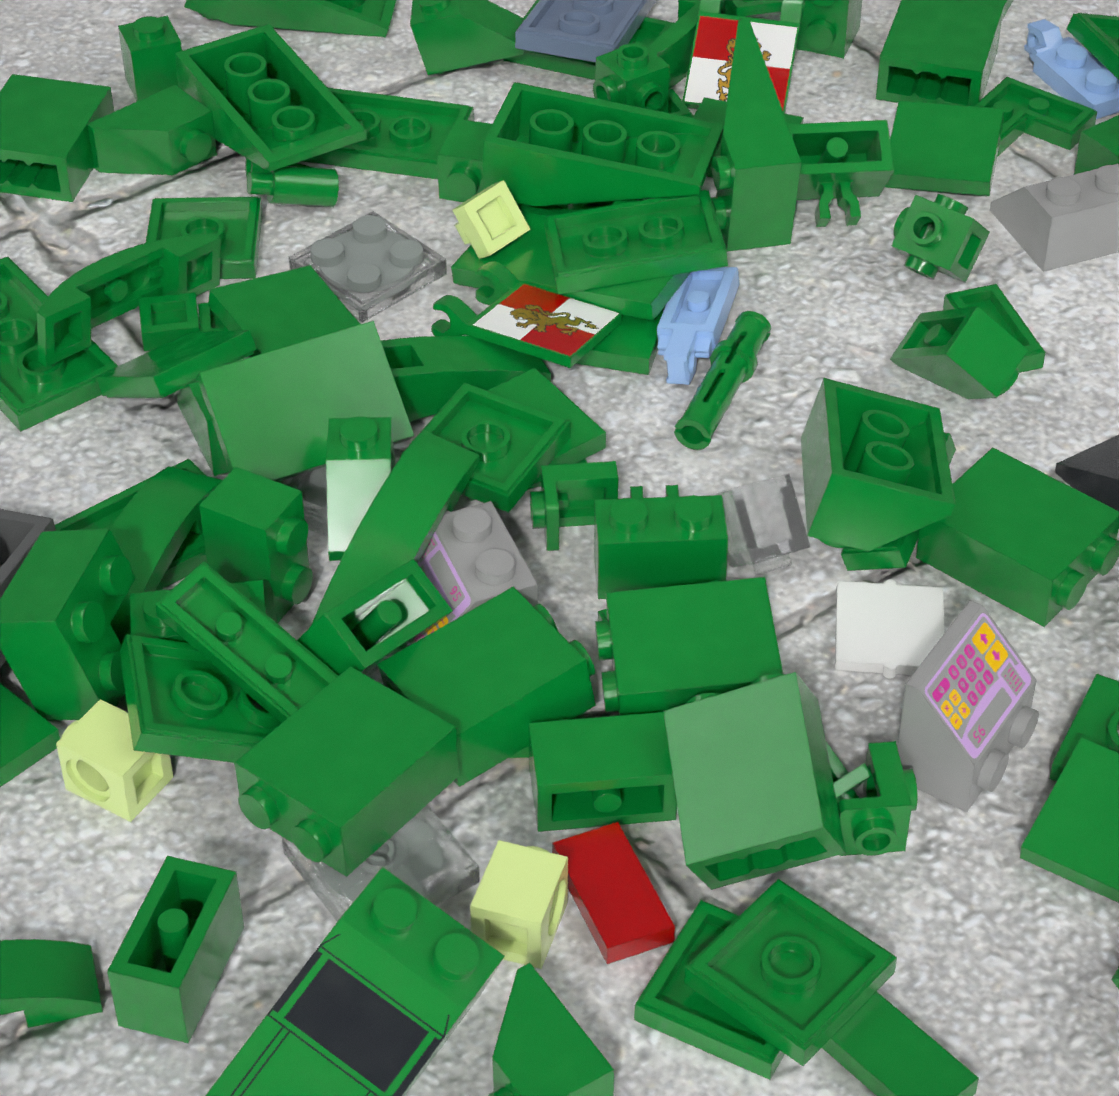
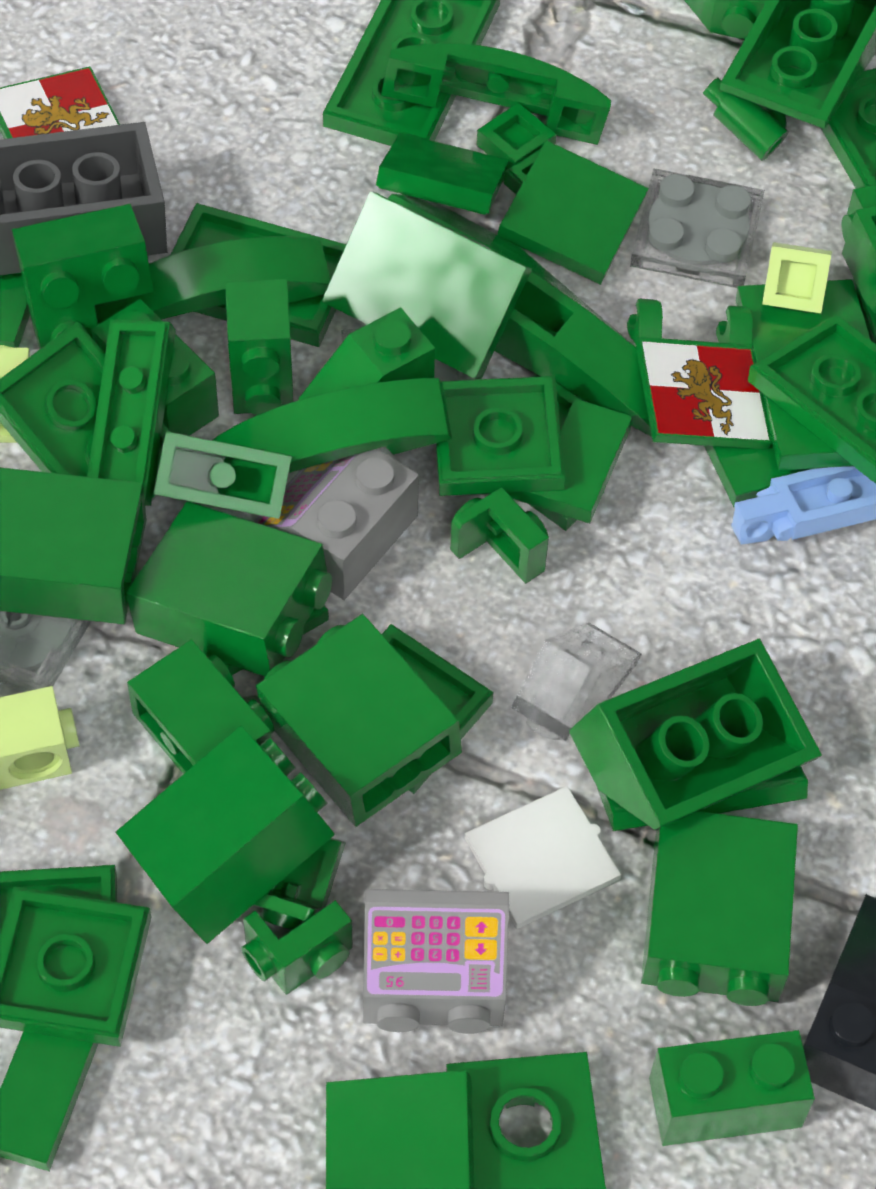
camera: 55 degrees right, 15 degrees up
(231, 218) = (648, 97): green tile -> none
(614, 893) = (90, 798): red tile -> none
(658, 541) = (488, 621): green brick -> none
(731, 364) = (778, 562): green pin -> none

